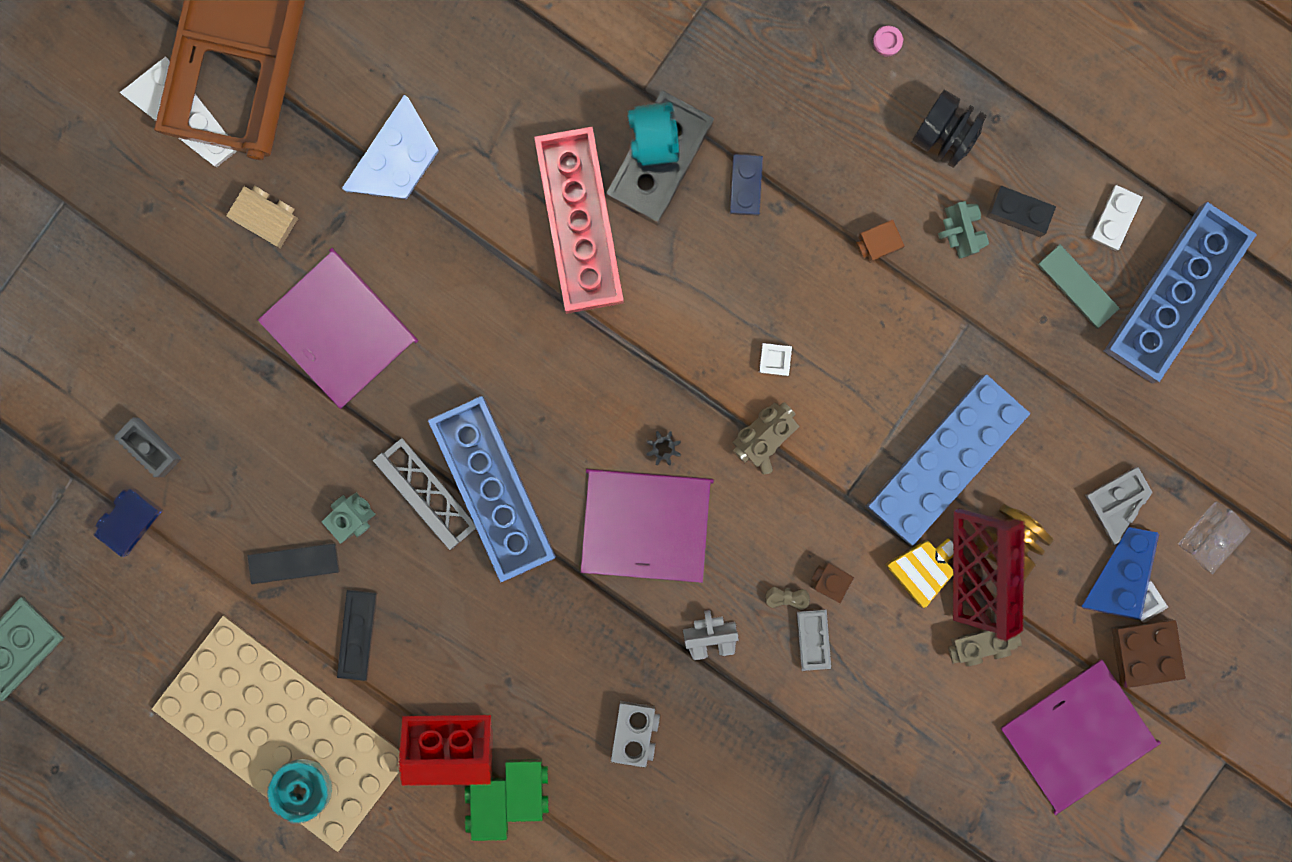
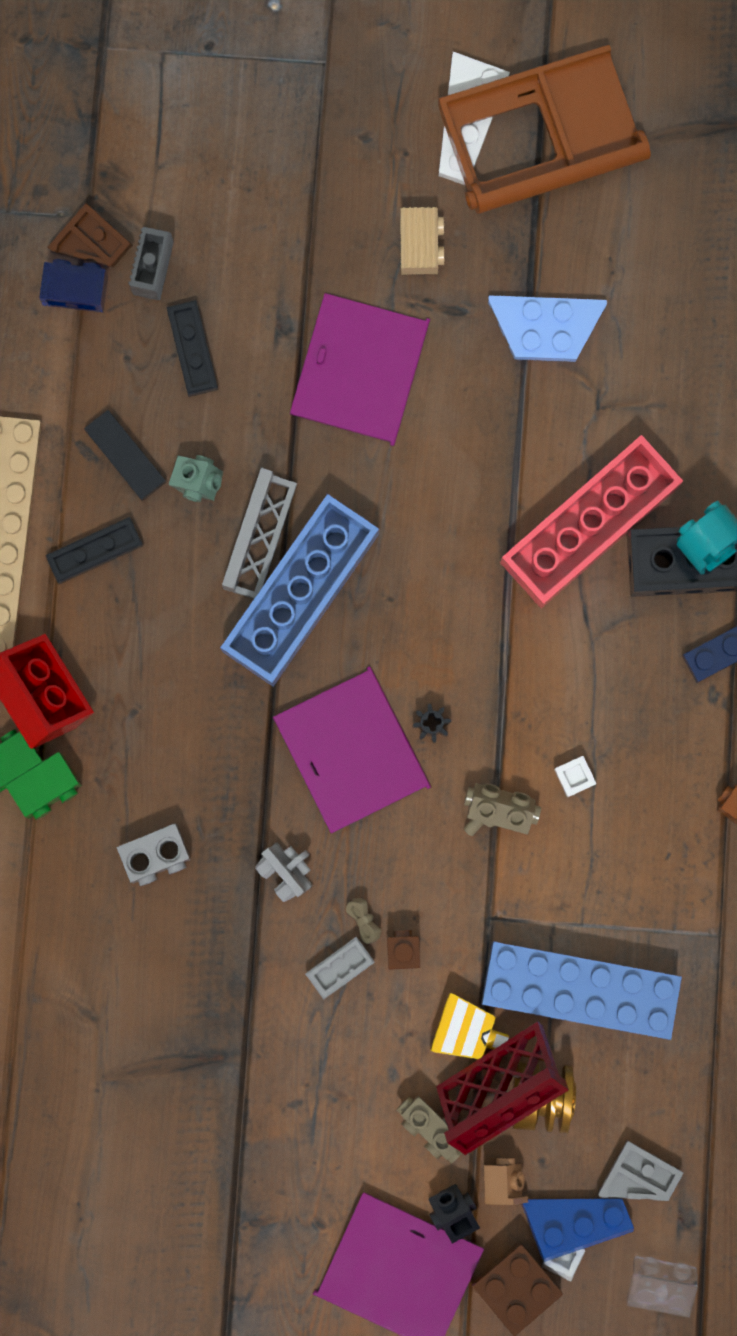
camera: 60 degrees right, 5 degrees down
(96, 484) = (91, 239): none -> reddish brown wing
(238, 455) = (192, 348): none -> black tile
(1060, 667) = (453, 1213): none -> black brick
(1061, 612) = (504, 1182): none -> medium nougat brick

